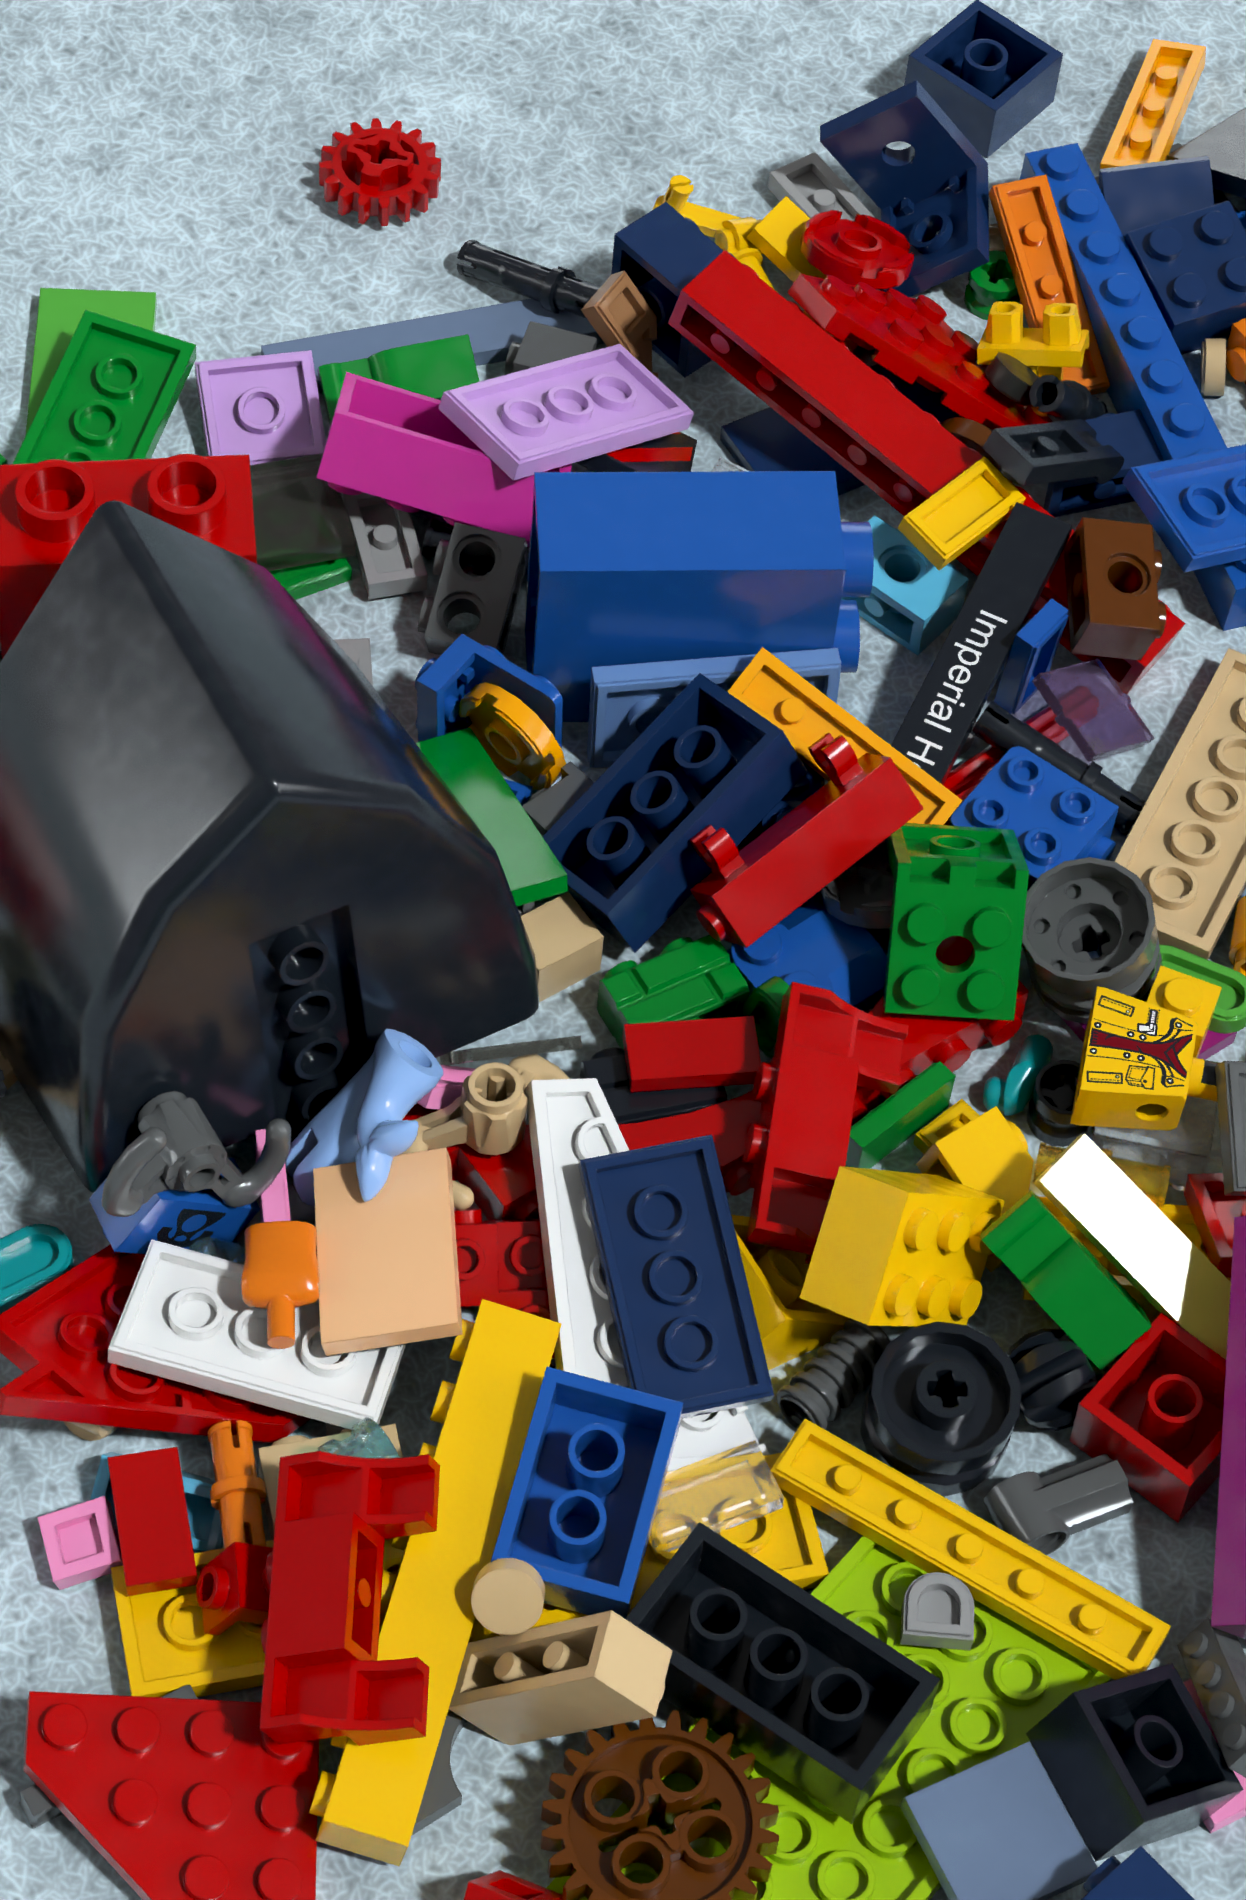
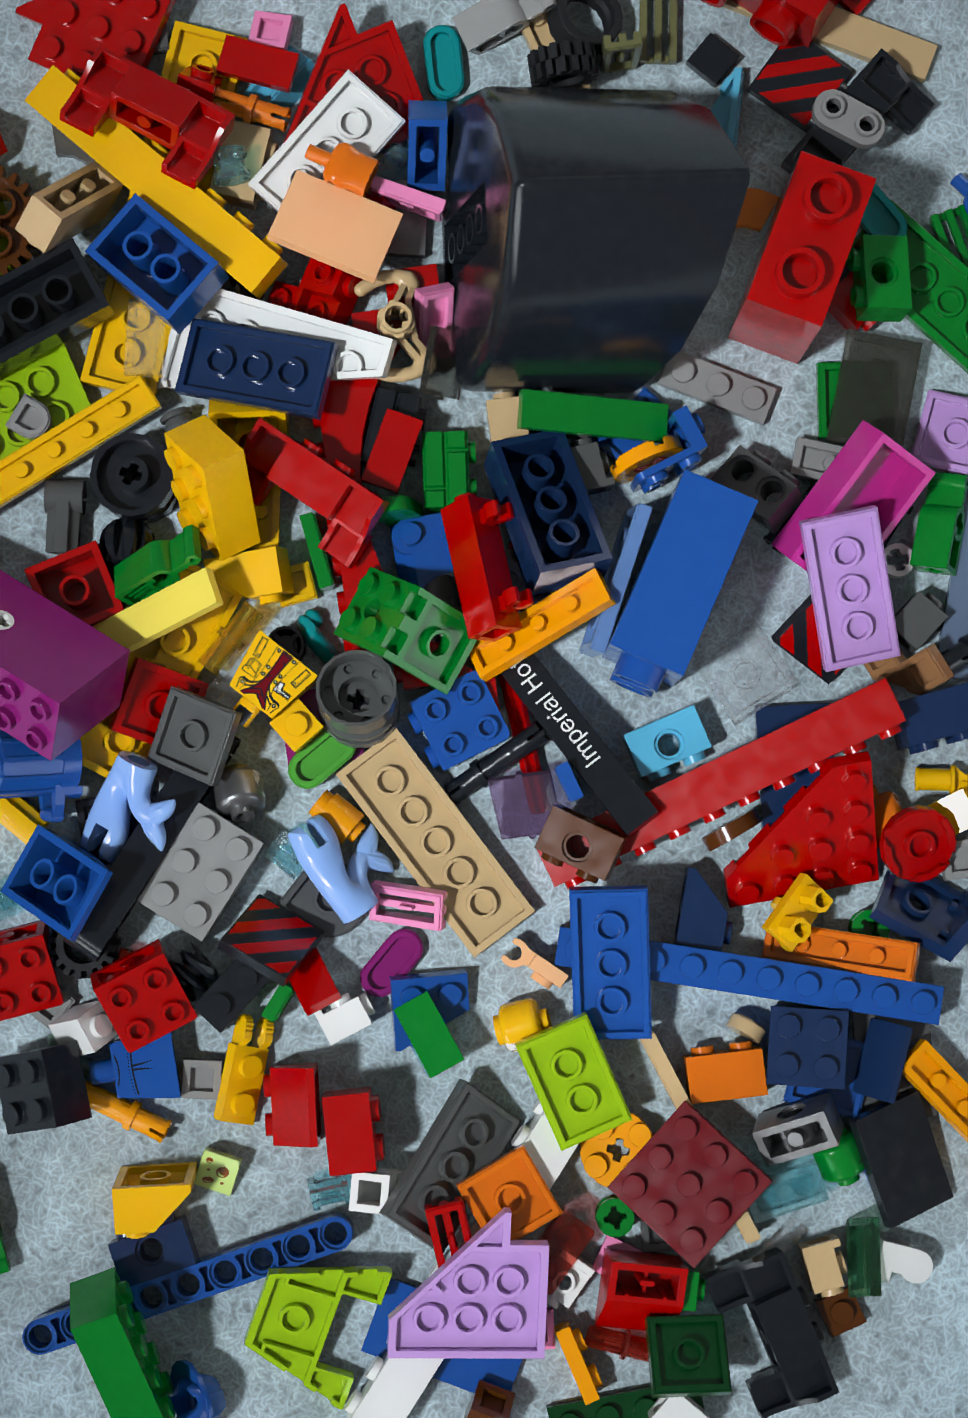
camera: 115 degrees right, 30 degrees up
(185, 1154) = (426, 139): dark grey piece -> none
(366, 1117) = (420, 250): light blue piece -> none
(508, 1596) = (115, 195): tan tile -> none
(961, 513) = (669, 779): yellow tile -> none
(1011, 378) = (771, 882): pearl dark grey tile -> none
(1052, 453) = (689, 858): black plate -> none
(1065, 399) = (745, 911): black pin -> none

